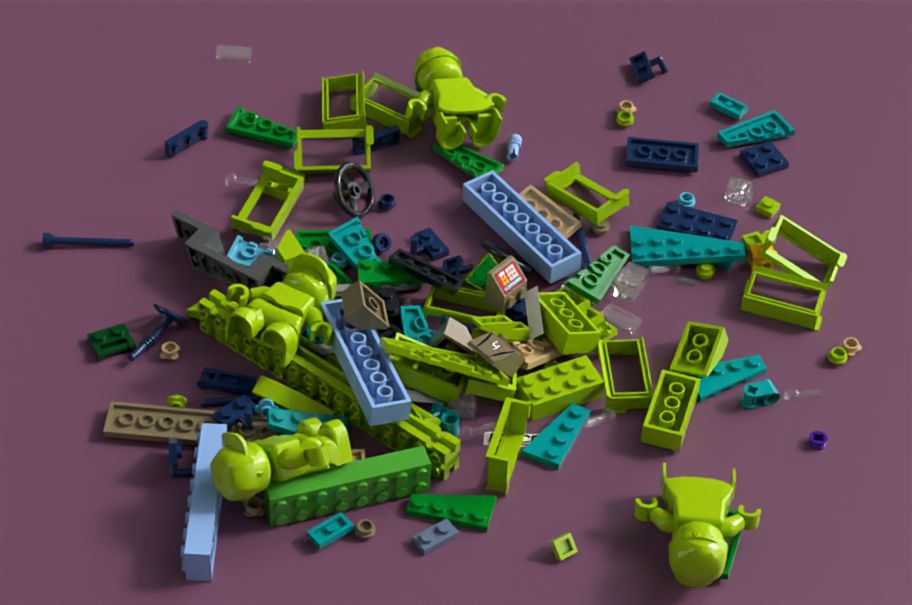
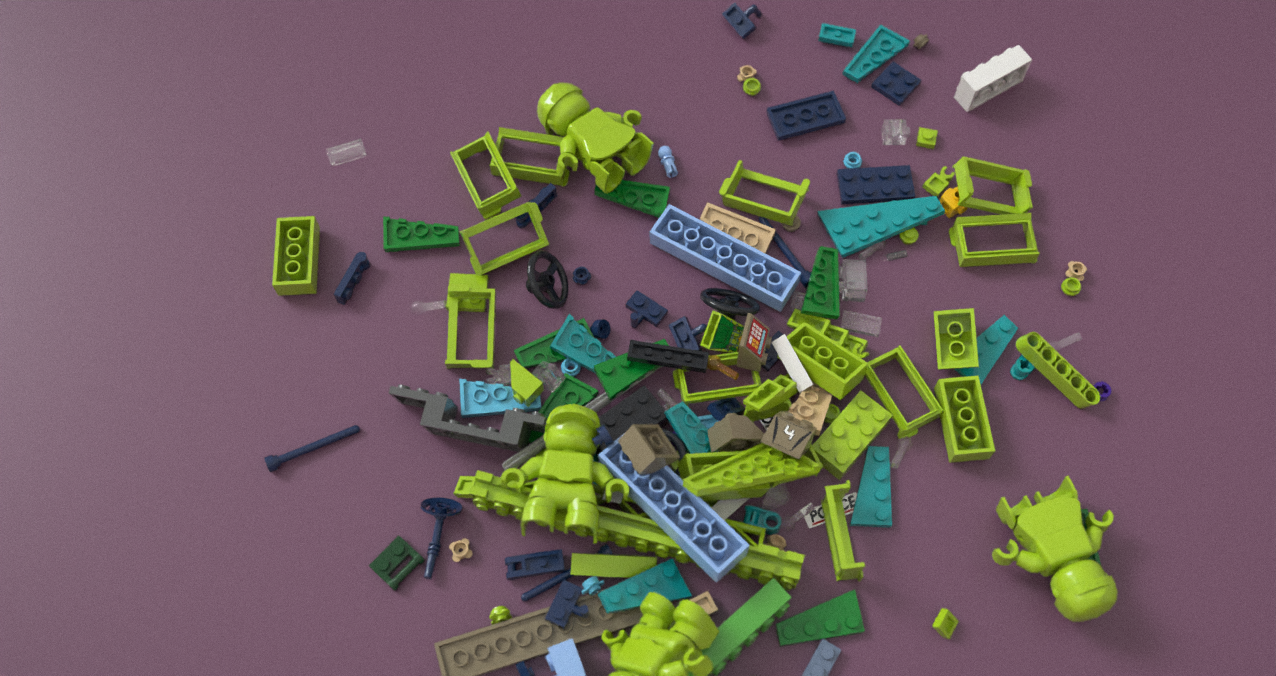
camera: 20 degrees left, 20 degrees up
(149, 107) = (296, 255): none -> lime brick
(331, 290) = (603, 436): none -> dark blue tile
(465, 293) = (714, 363): none -> clear orange bar
(780, 412) = (1057, 370): none -> lime beam
(806, 134) = (920, 41): none -> dark tan plate
(855, 178) = (992, 78): none -> white brick

